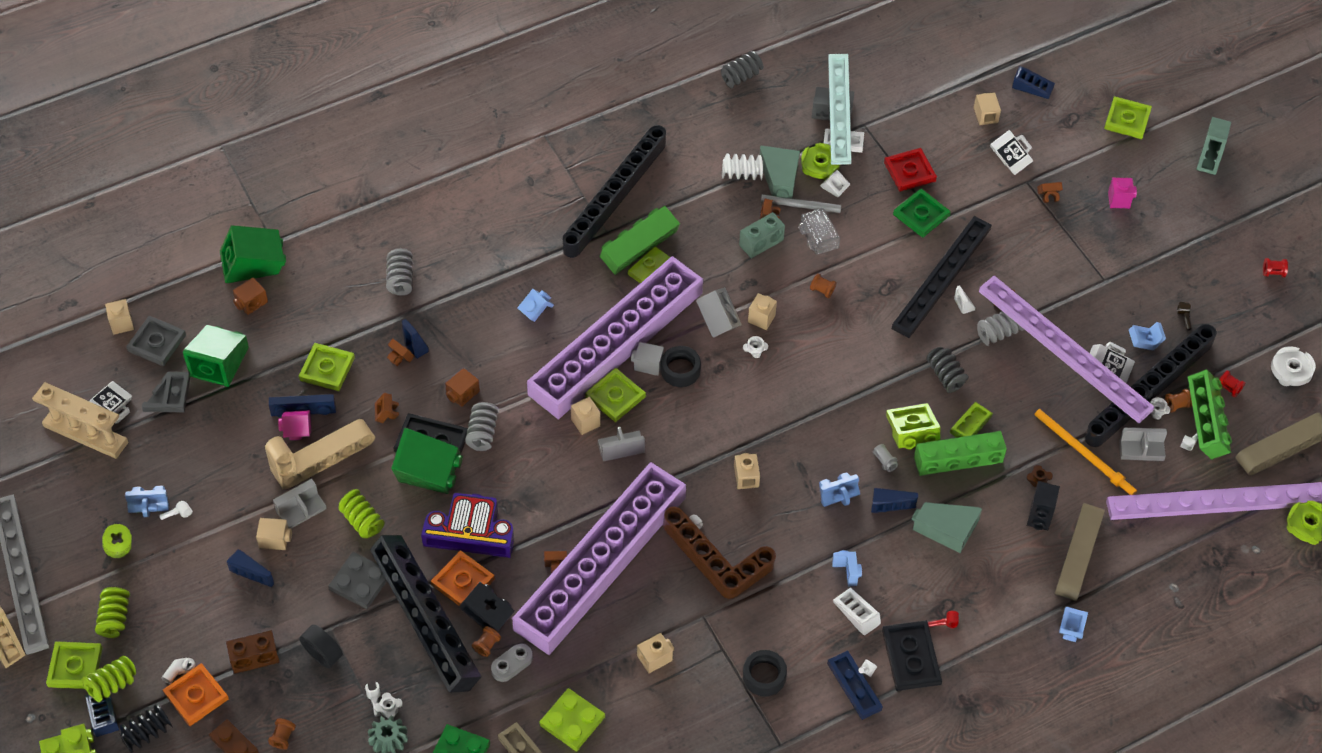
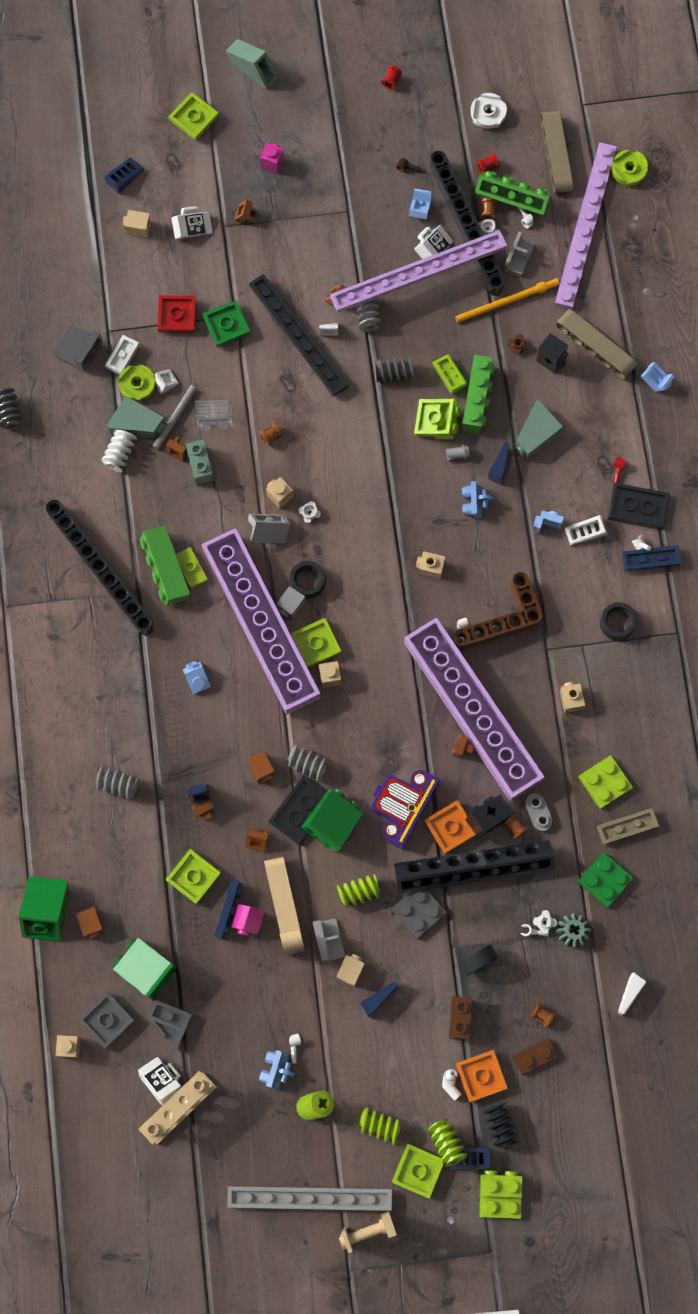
camera: 65 degrees left, 20 degrees up
(621, 445) = (366, 656): light grey panel -> none
(839, 109) = (100, 343): light aqua plate -> none

